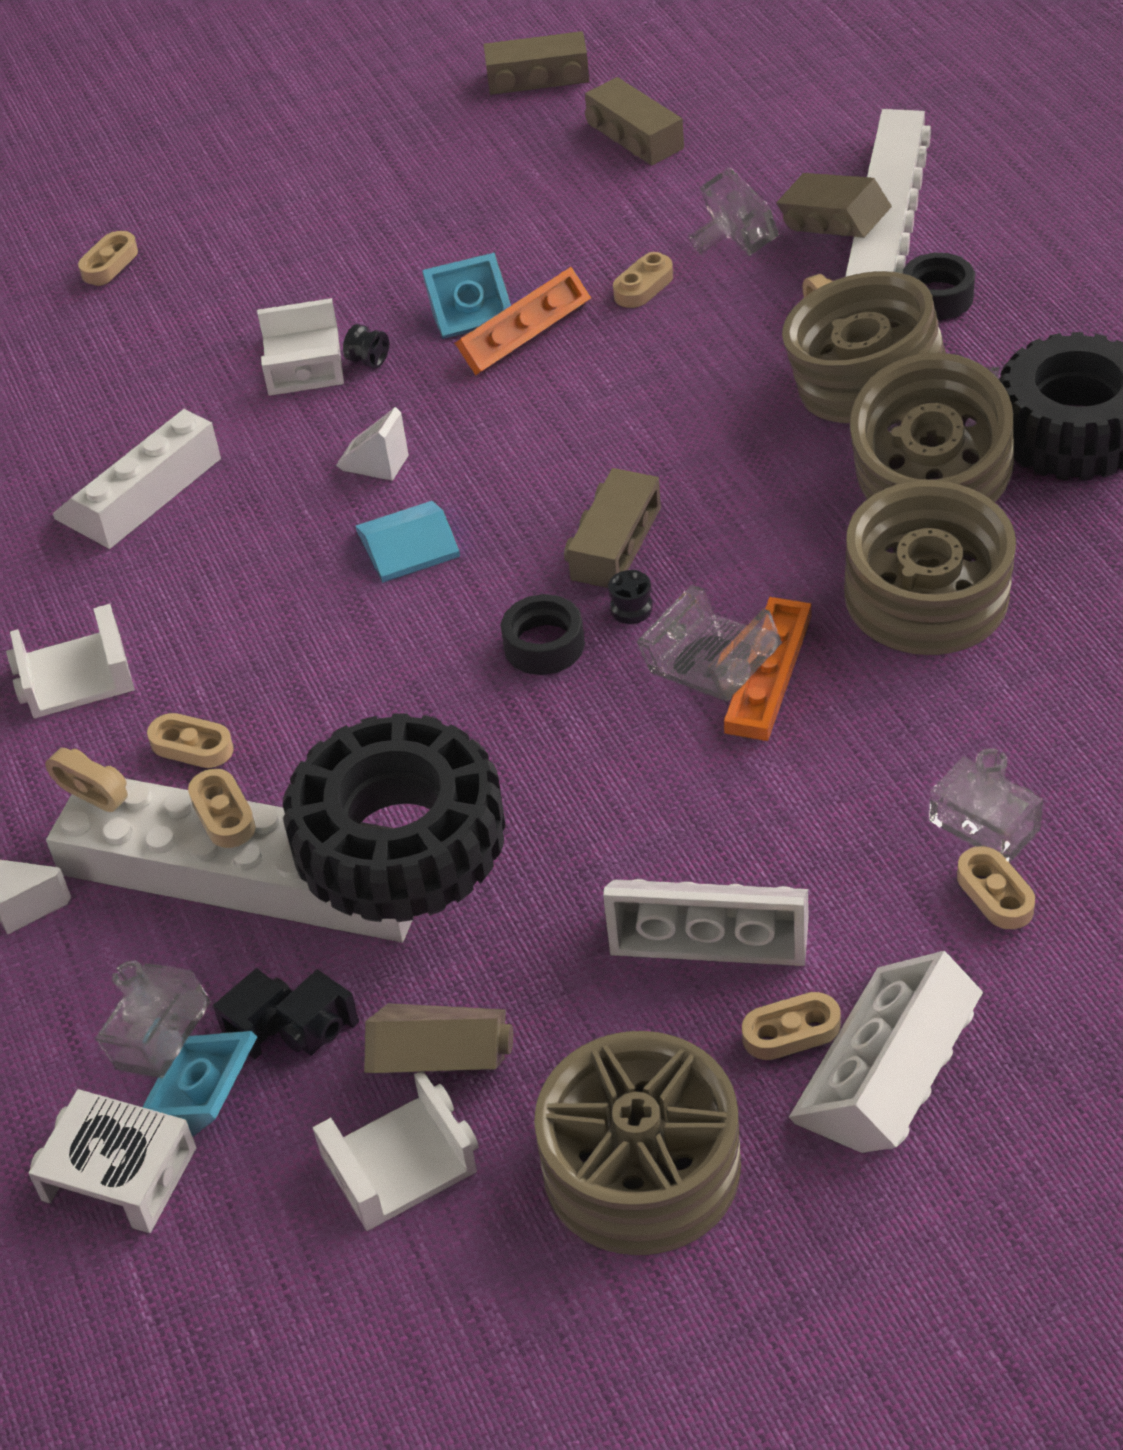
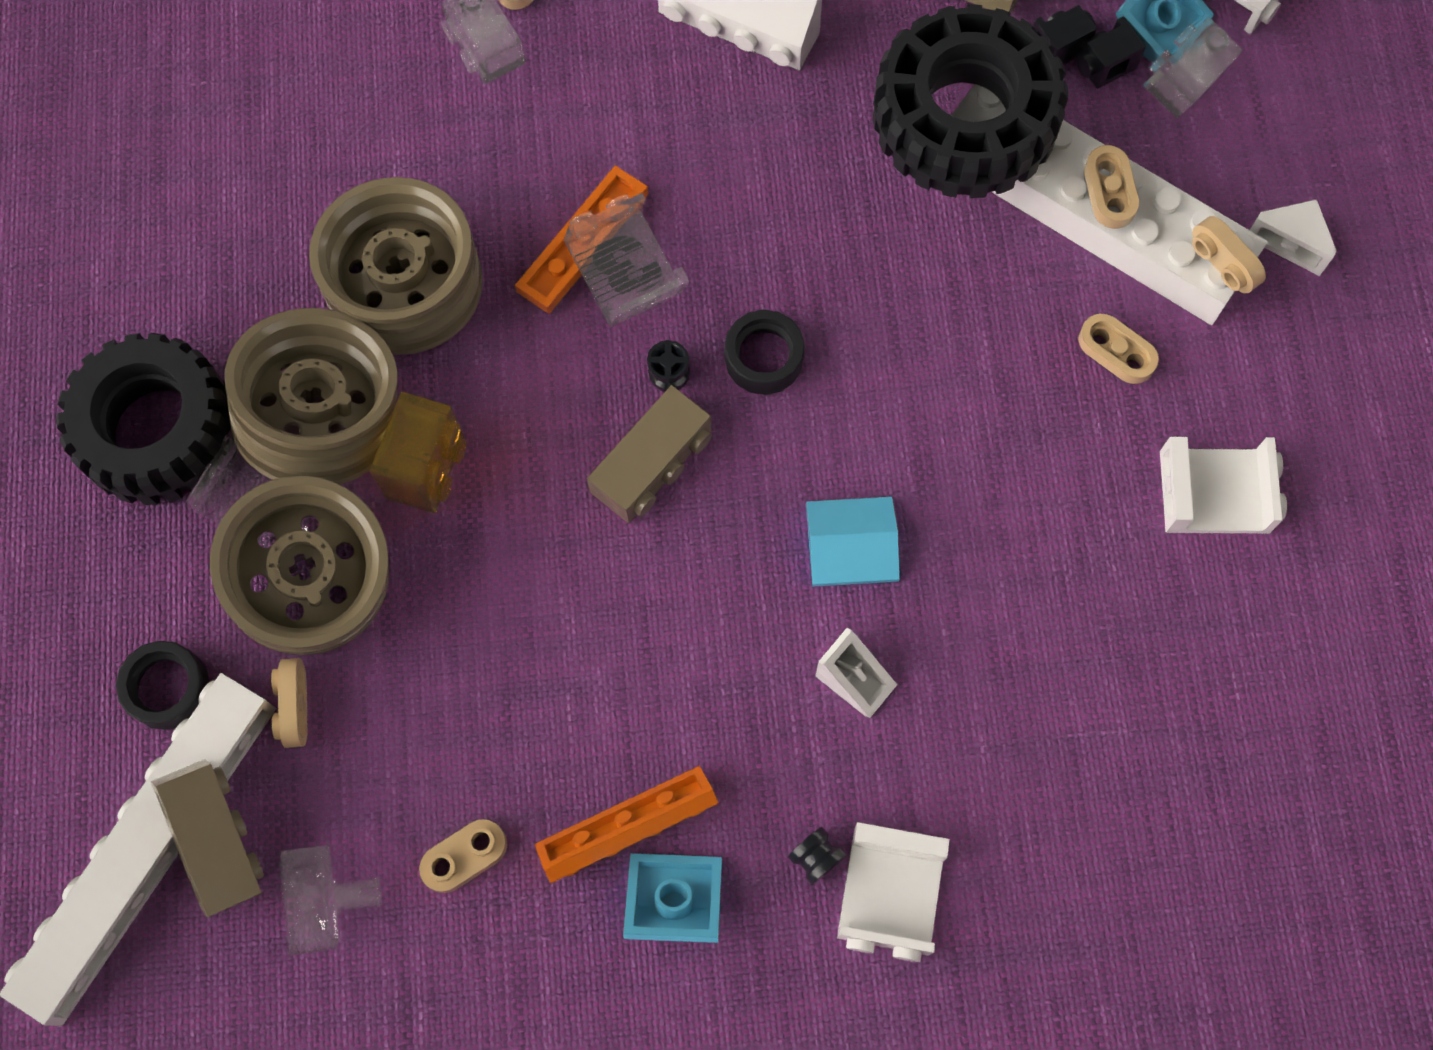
camera: 165 degrees left, 25 degrees up
(142, 480) = (1121, 739): white slope -> none
(816, 449) = (418, 453): none -> clear yellow piece

